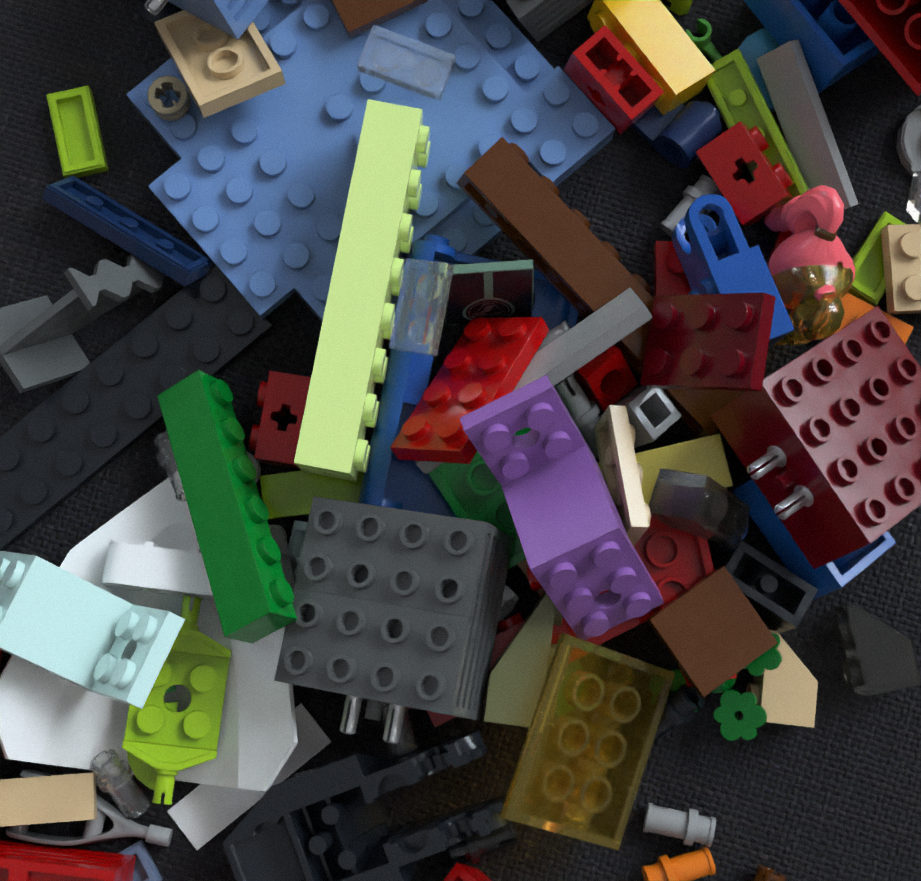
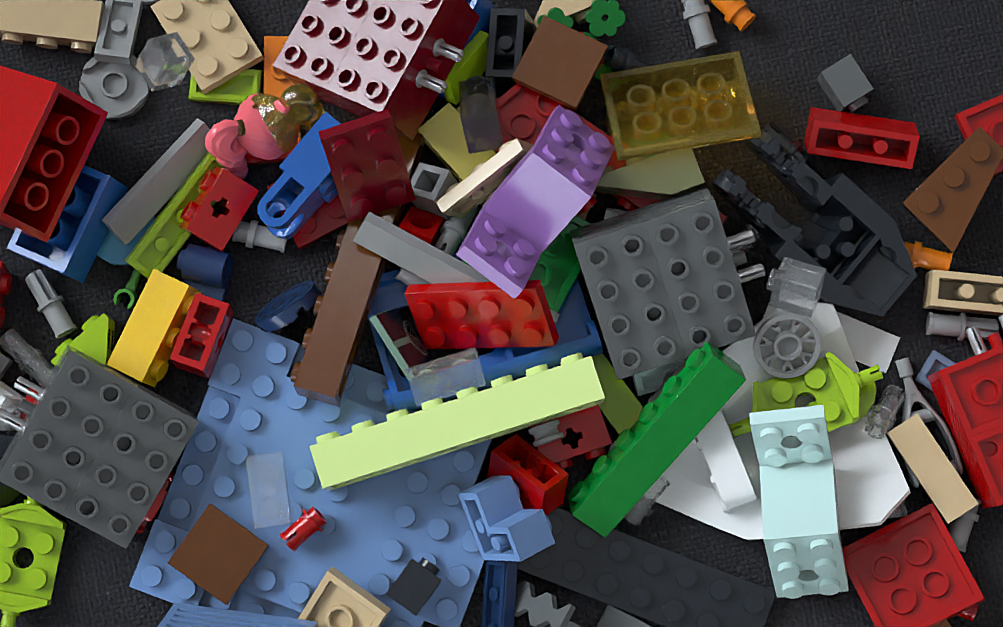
camera: 110 degrees left, 0 degrees up
(216, 160) = (415, 585): none -> black brick
(226, 286) = (501, 524): none -> medium blue brick
(249, 713) = (787, 345): none -> light grey wheel
(267, 345) = (537, 477): none -> red brick
(298, 387) = (546, 433): none -> light grey bush
(304, 758) = (796, 286): none -> clear brick
(347, 87) = (303, 528): none -> red pin
(599, 199) = (285, 306): none -> dark blue tile
(765, 529) = (471, 65): none -> lime tile

